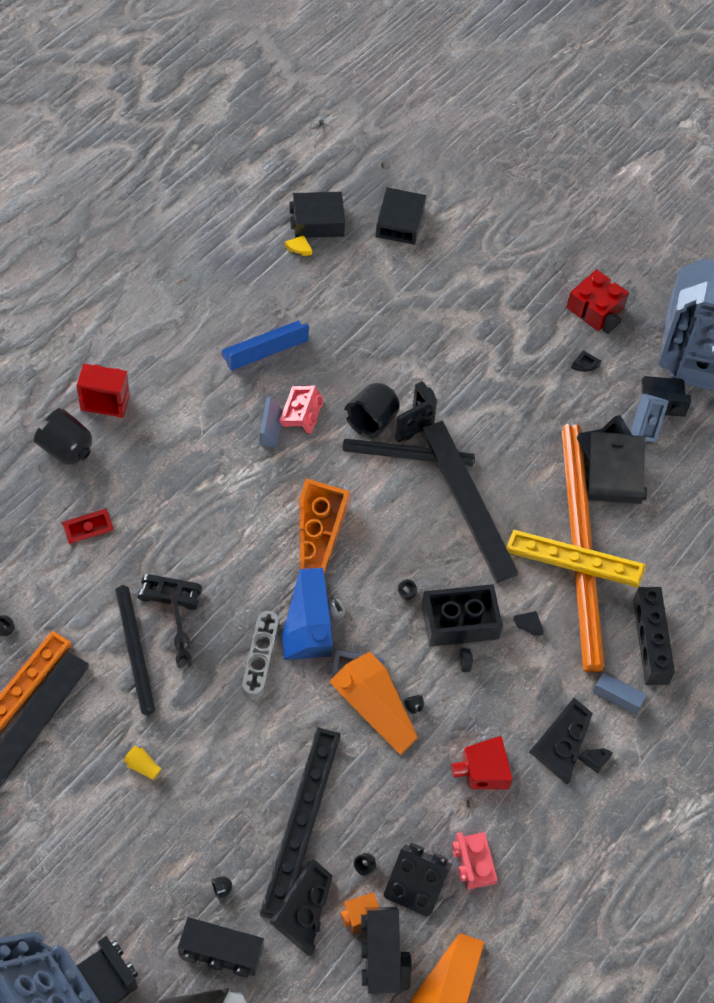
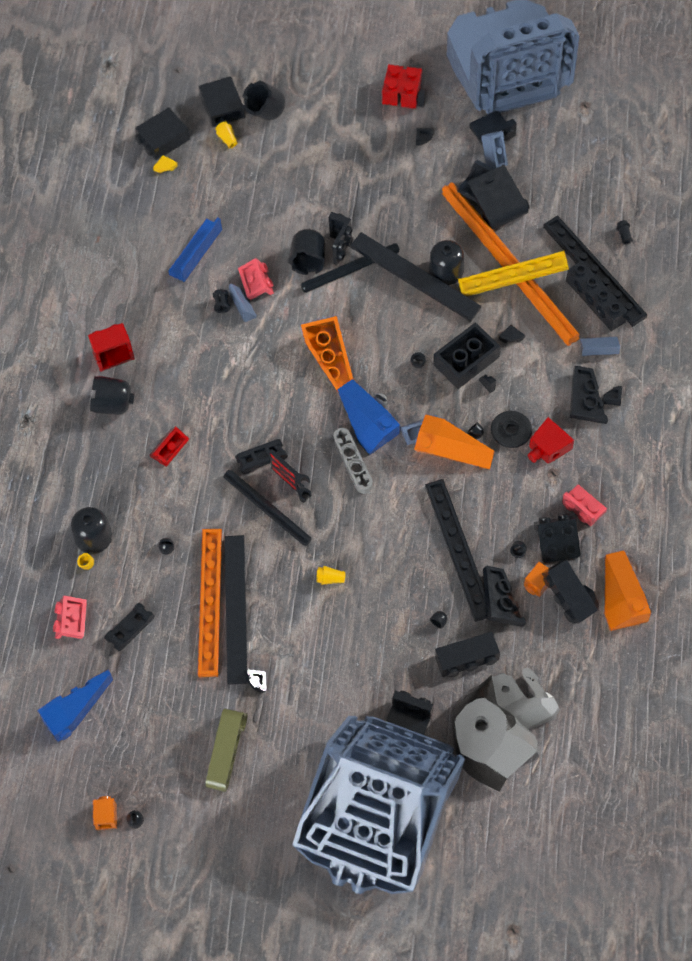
camera: 25 degrees left, 5 degrees up
(250, 409) = (221, 301): none -> black bush
(382, 247) = (226, 133): none -> yellow cone
(440, 236) = (263, 100): none -> black cylinder
(451, 738) = (515, 419): none -> black wheel
(512, 504) = (447, 262): none -> black cylinder
(669, 578) = (579, 252): none -> black tile

